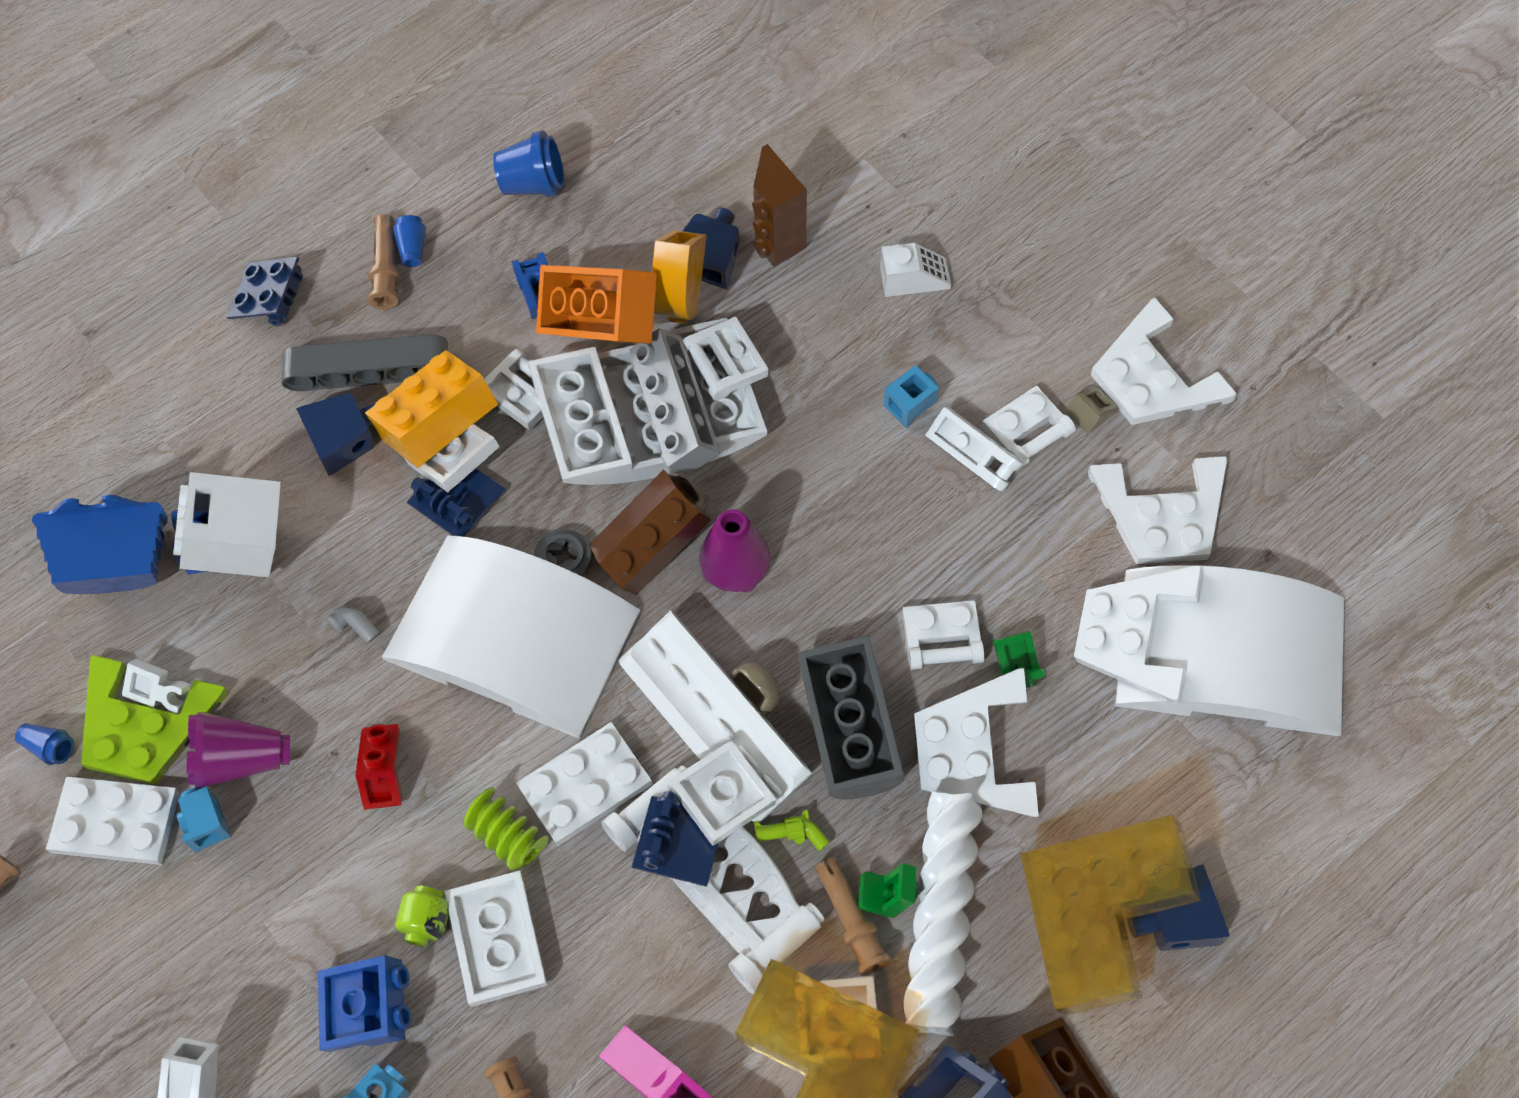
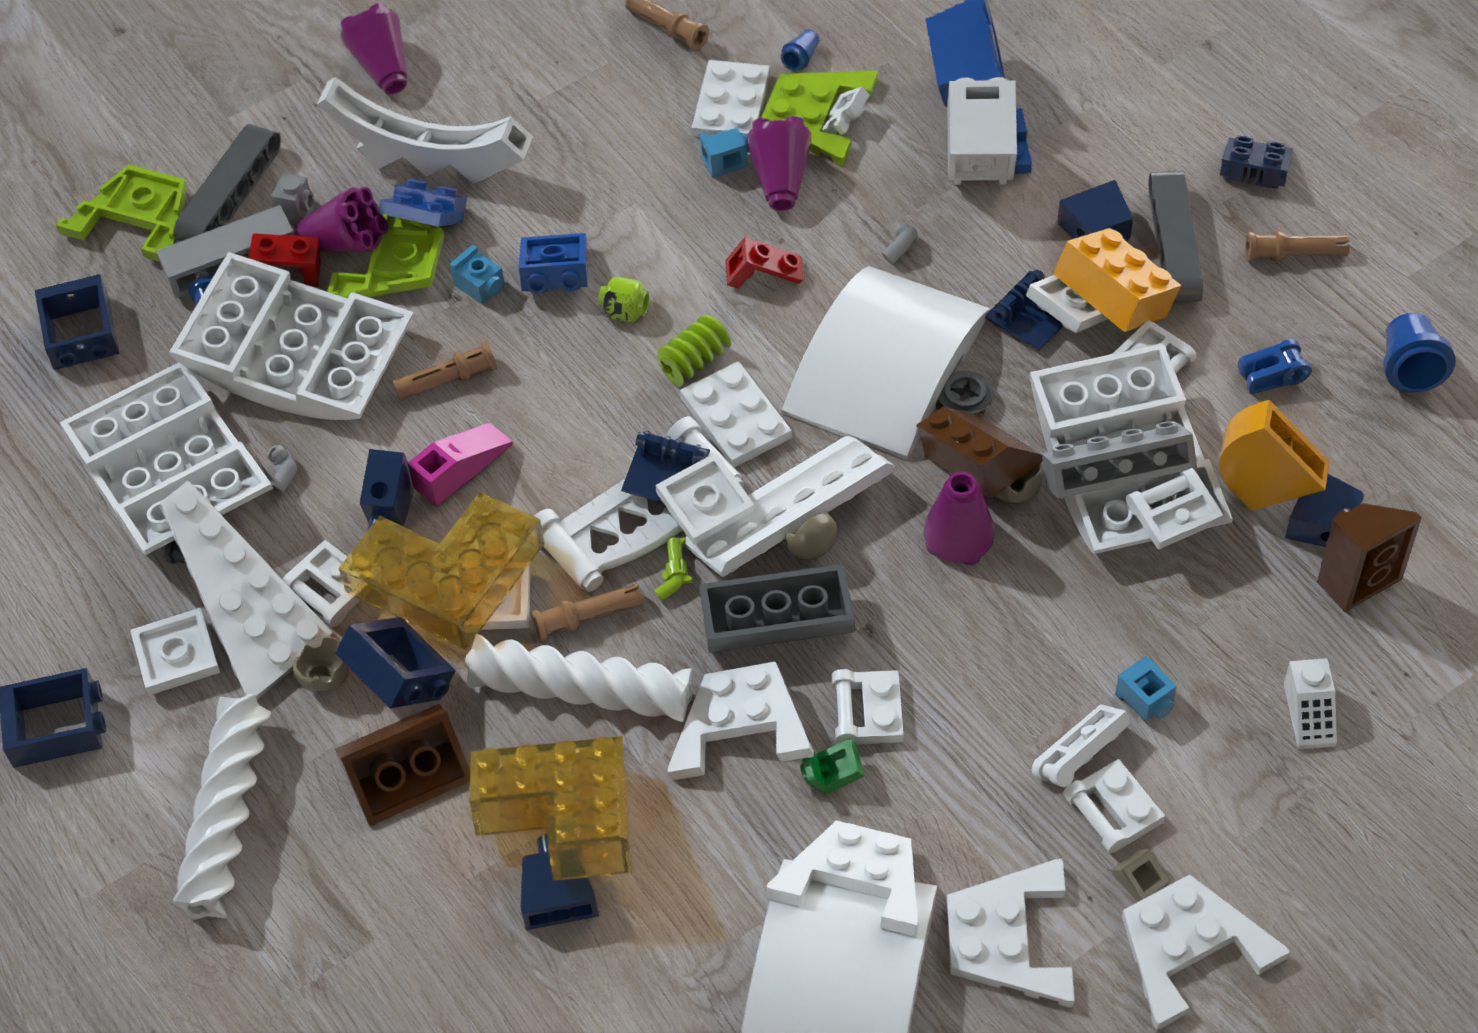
camera: 95 degrees right, 10 degrees down
(410, 239) = (1322, 264): blue cone -> none
(495, 938) = (599, 350): white plate -> none
(596, 303) = (1222, 387): orange brick -> none
(889, 893) = (604, 634): green bracket -> none

